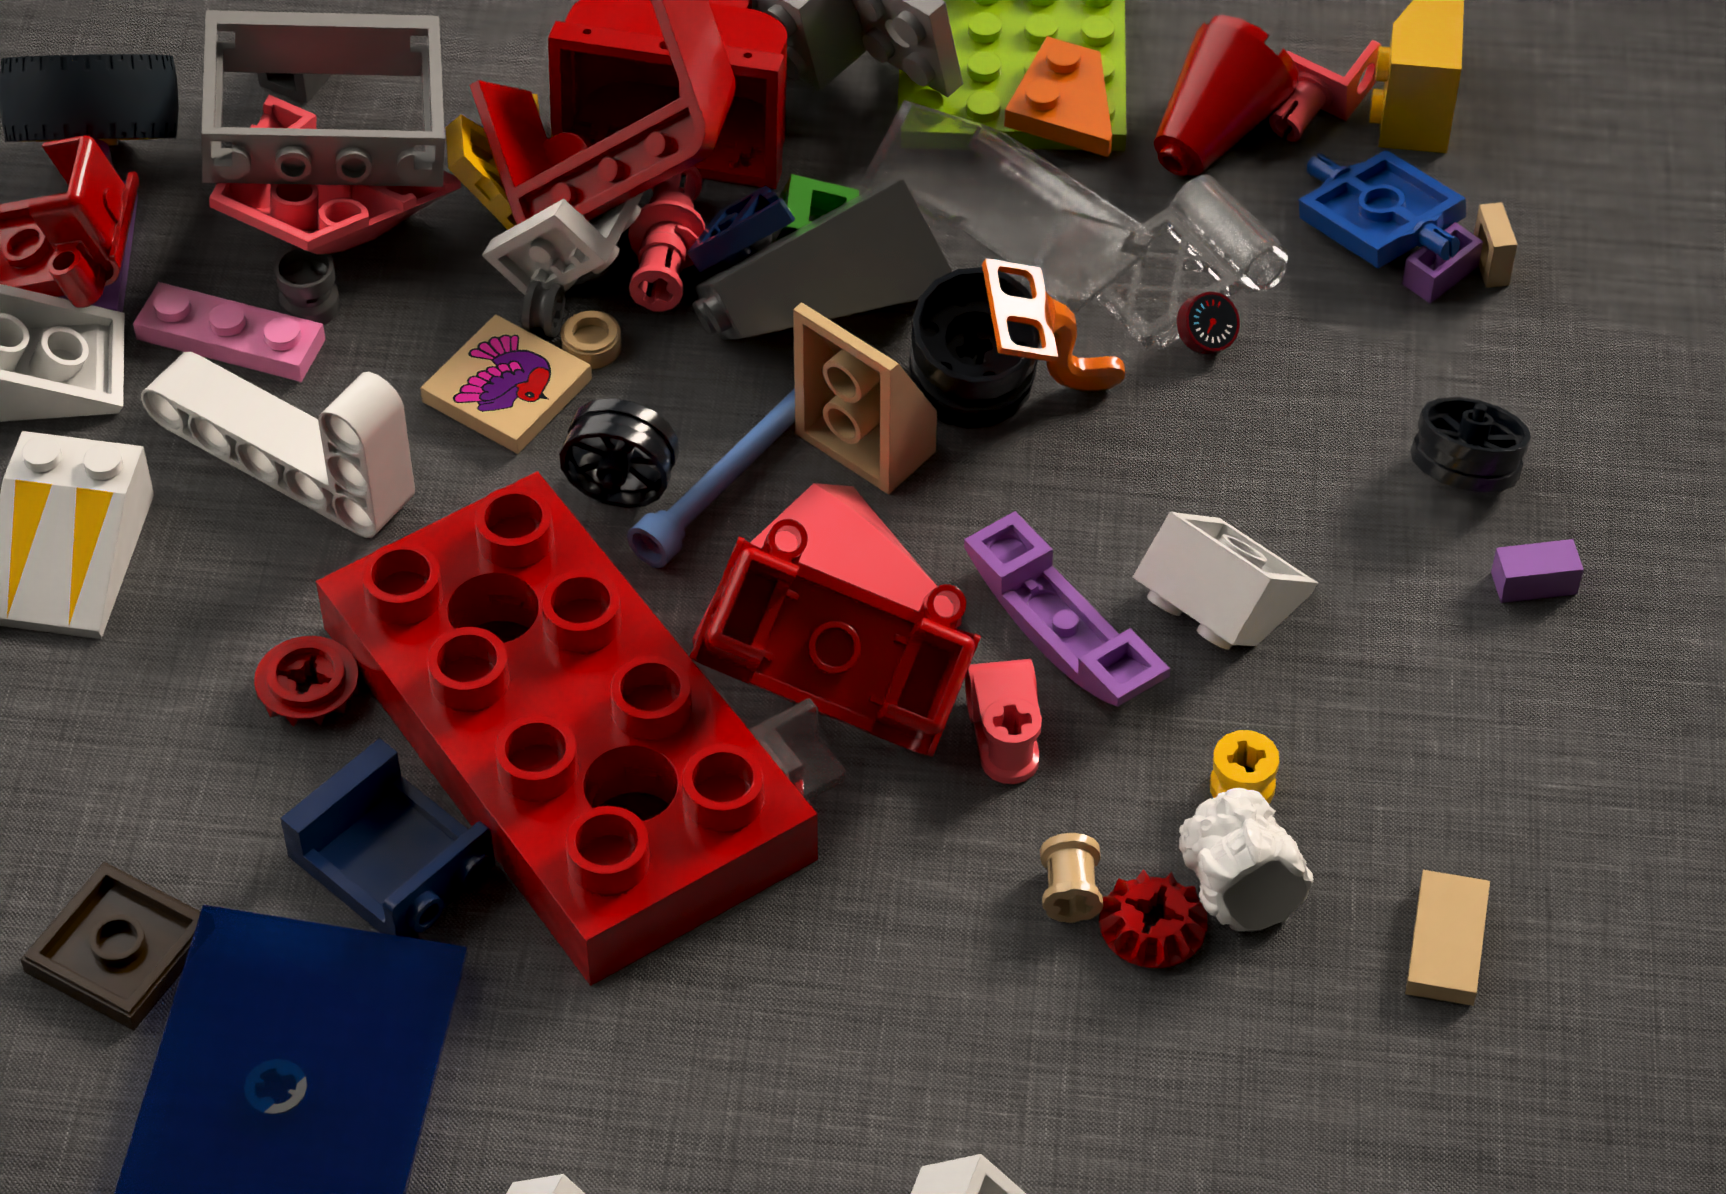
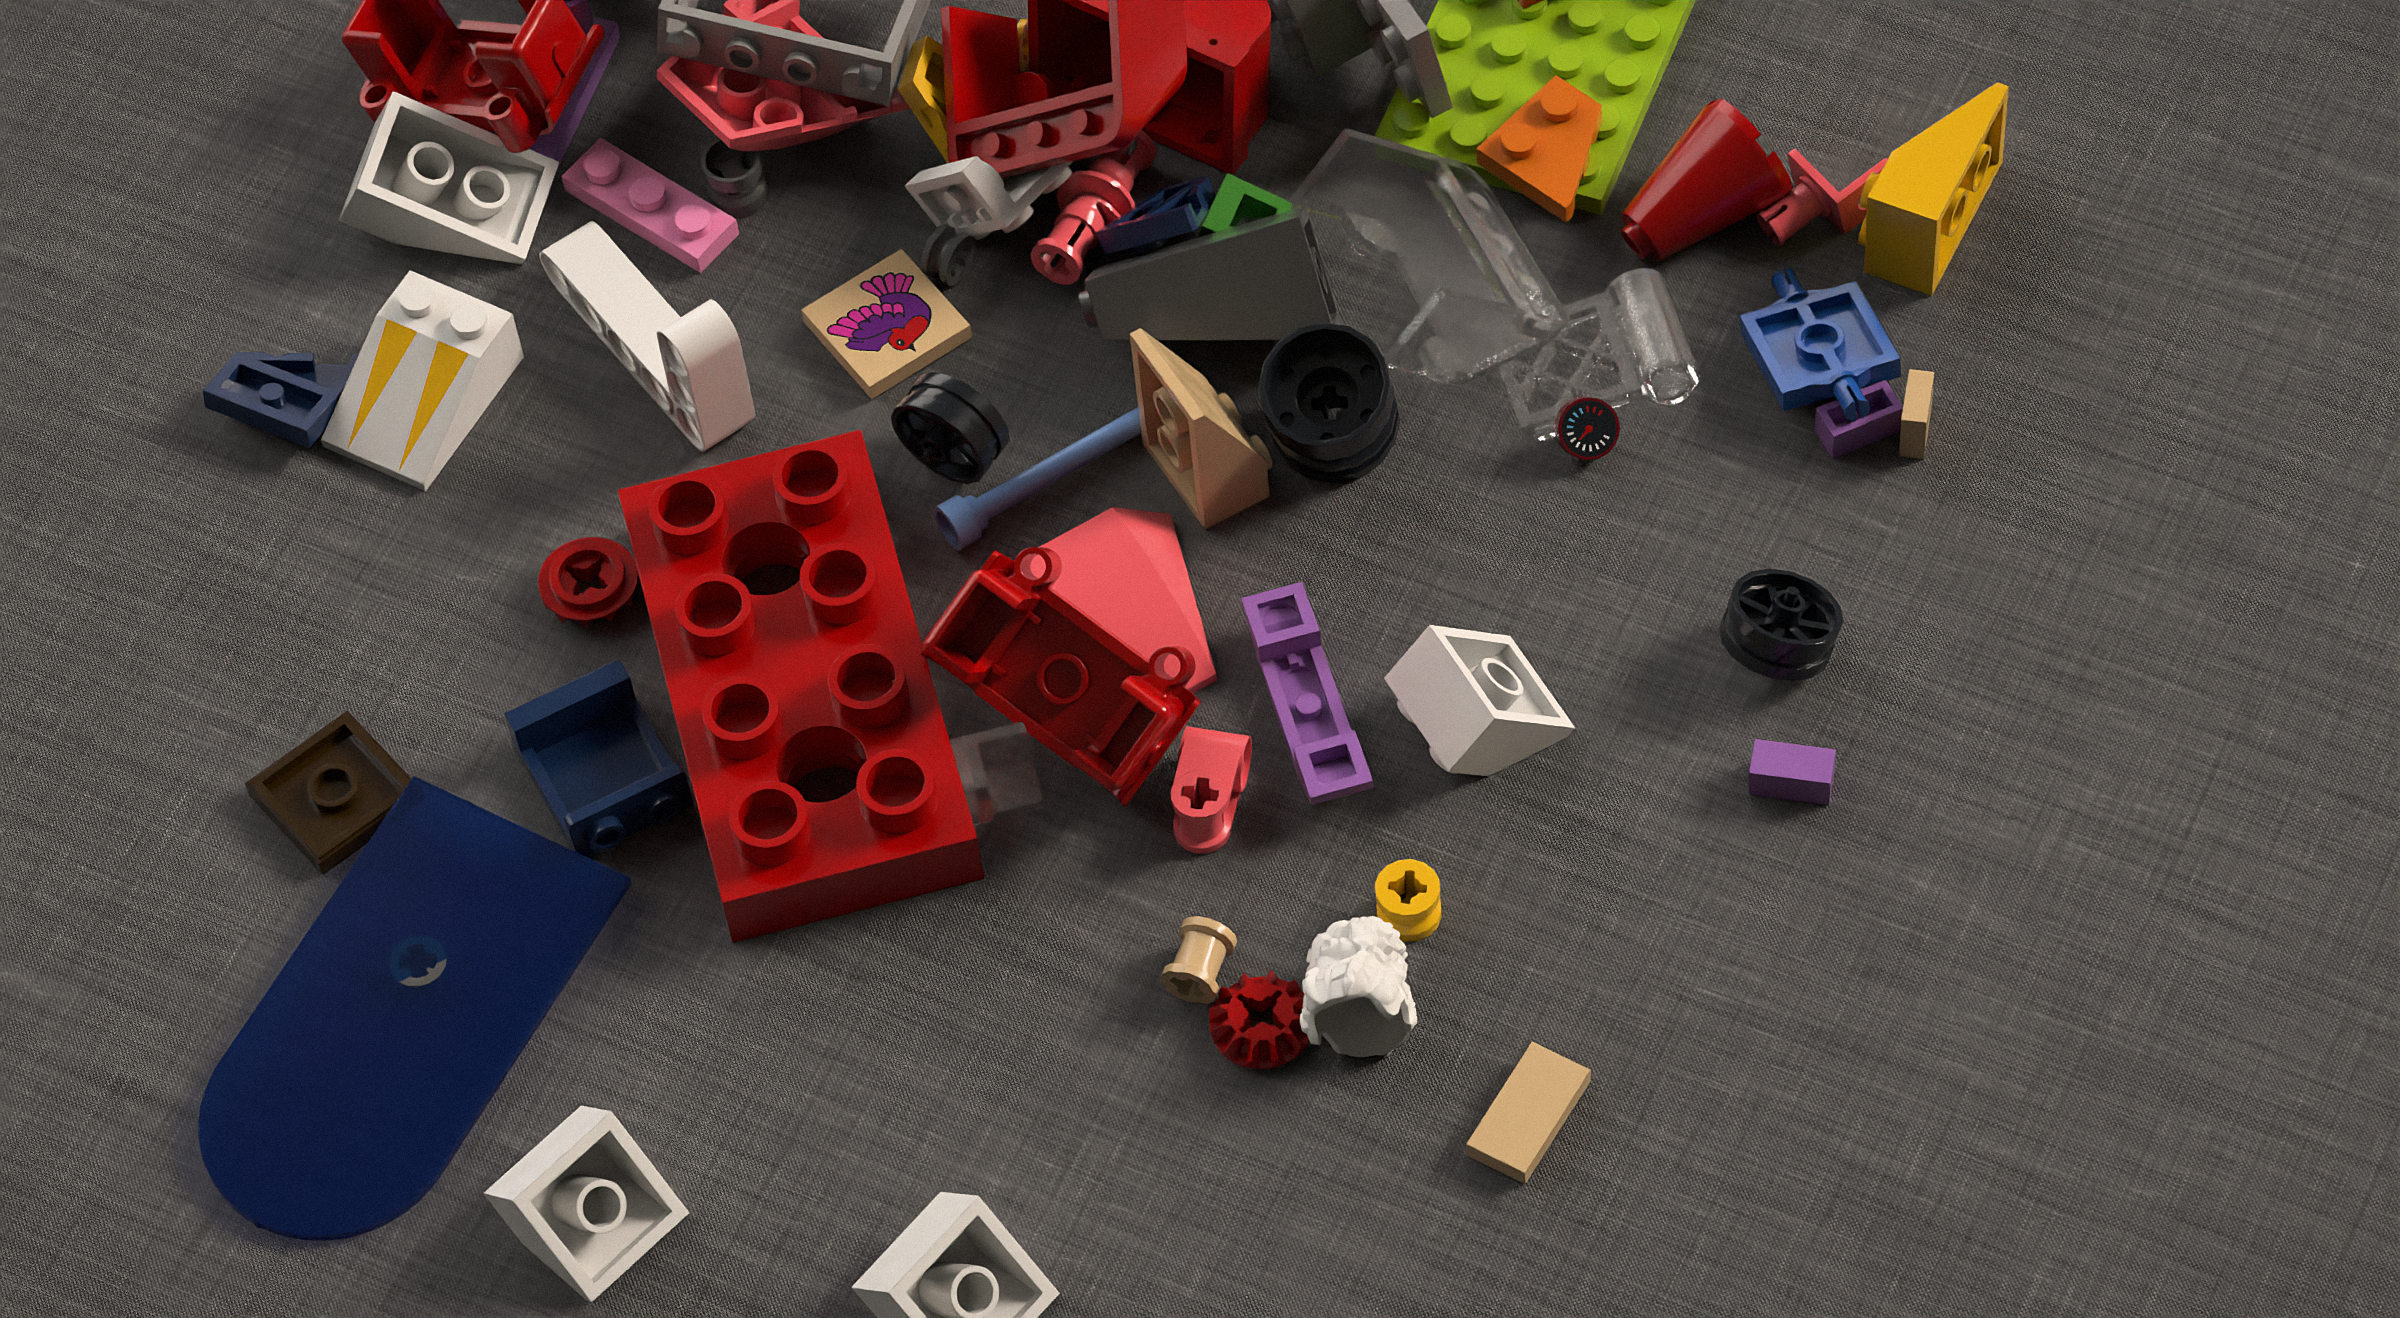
camera: 25 degrees right, 5 degrees up
(592, 338) = (985, 296): tan tile -> none
(1056, 330) = (1393, 394): orange piece -> none

